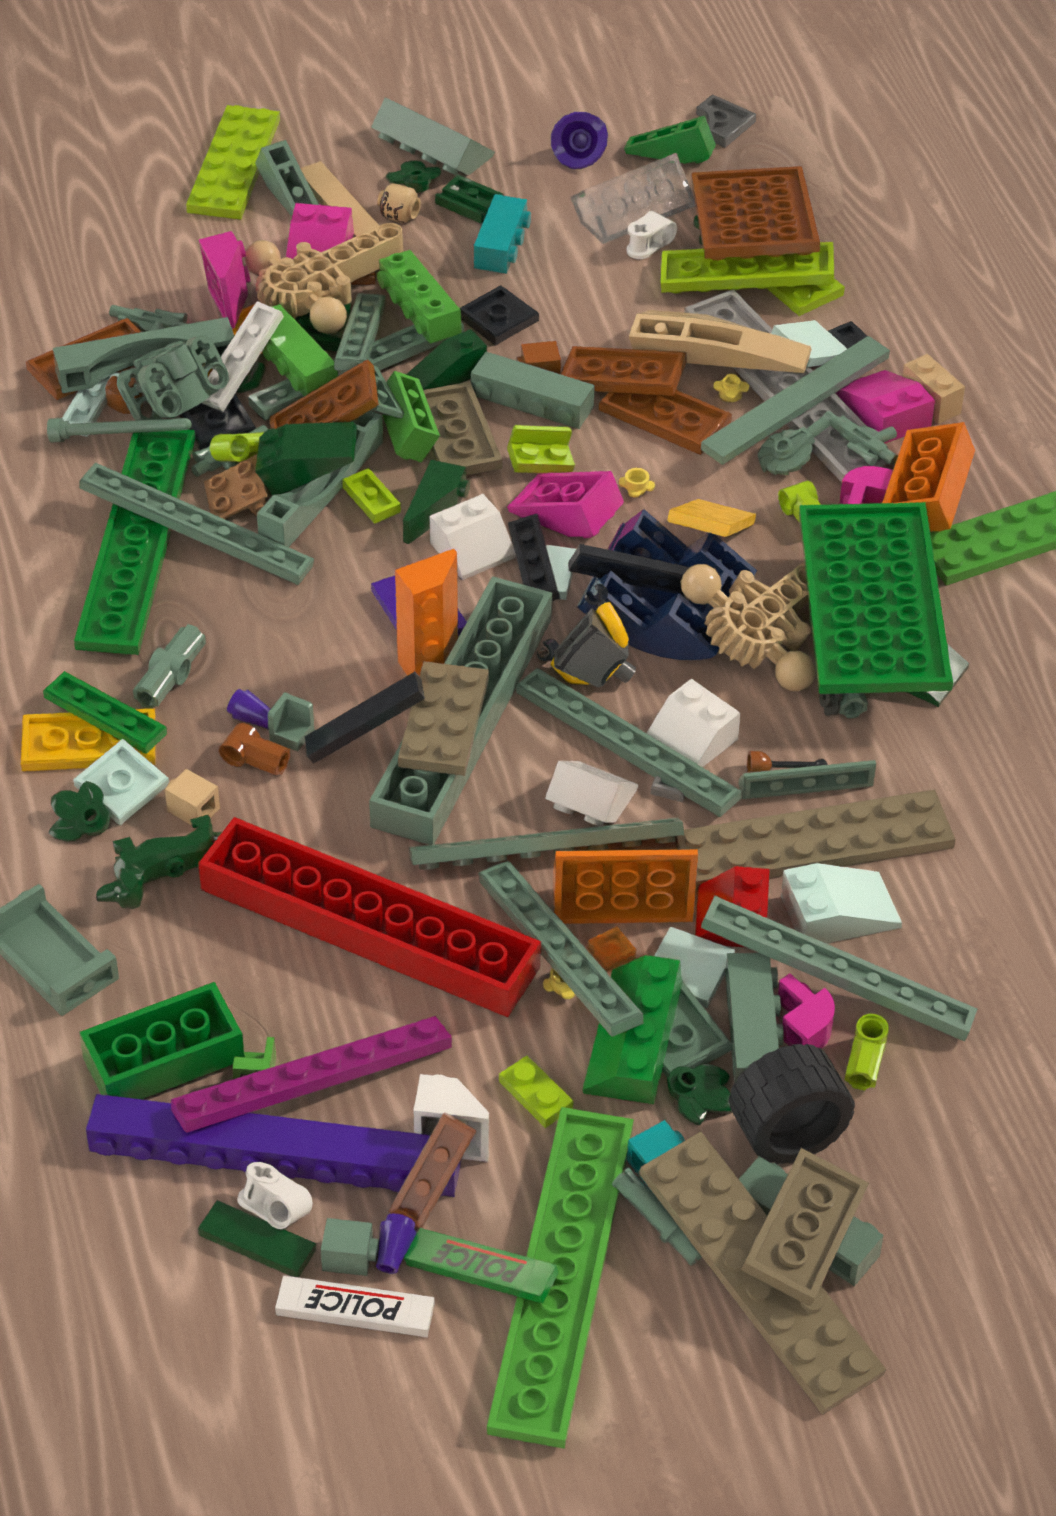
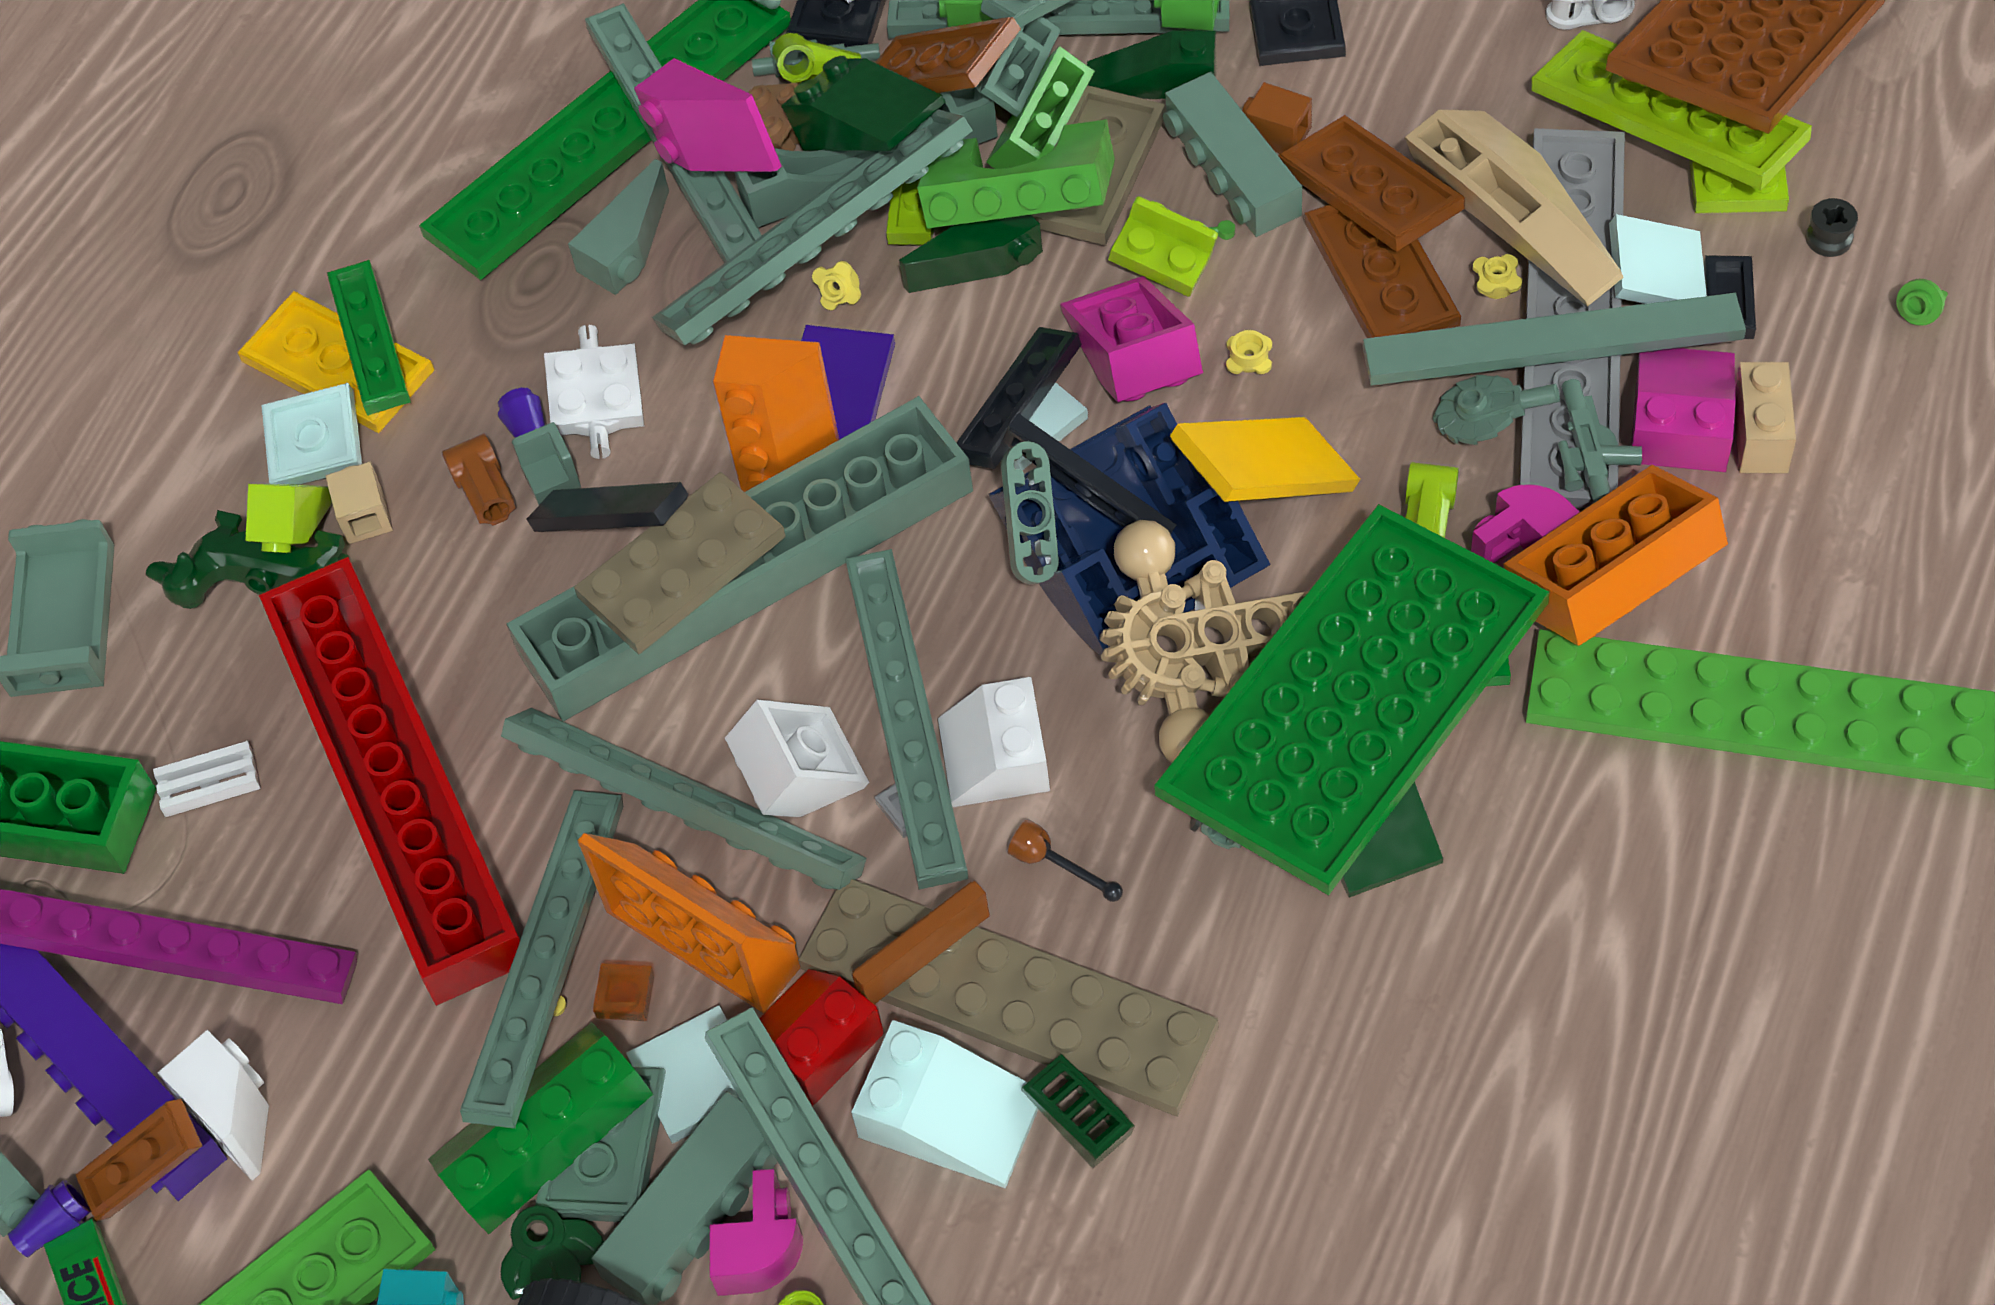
camera: 45 degrees right, 10 degrees up
(75, 811) = (236, 451): dark green plate -> none
(169, 666) = (490, 314): sand green piece -> none
(169, 814) = (284, 514): none -> lime slope
(211, 589) = (620, 237): none -> sand green slope
(235, 490) = (704, 121): none -> dark pink slope
(240, 980) = (206, 772): none -> white tile
(255, 1061) = (124, 892): bright green panel -> none
(273, 672) = (594, 390): none -> white plate
(336, 528) = (803, 231): none -> sand green plate
(370, 545) = (847, 280): none -> light yellow plate
(469, 429) = (1065, 179): none -> bright green arch
(475, 533) = (971, 324): white slope -> none
(535, 1091) = (377, 1125): lime plate -> none
(593, 648) = (957, 562): dark grey torso -> none
(641, 611) = (1015, 478): none -> sand green beam
(761, 825) = (922, 943): none -> dark orange tile
(807, 779) = (1072, 903): sand green slope -> none
(878, 290) = (1833, 239): none -> pearl dark grey wheel
(930, 866) = (1091, 1151): none -> dark green slope
(954, 304) = (1921, 301): none -> bright green plate

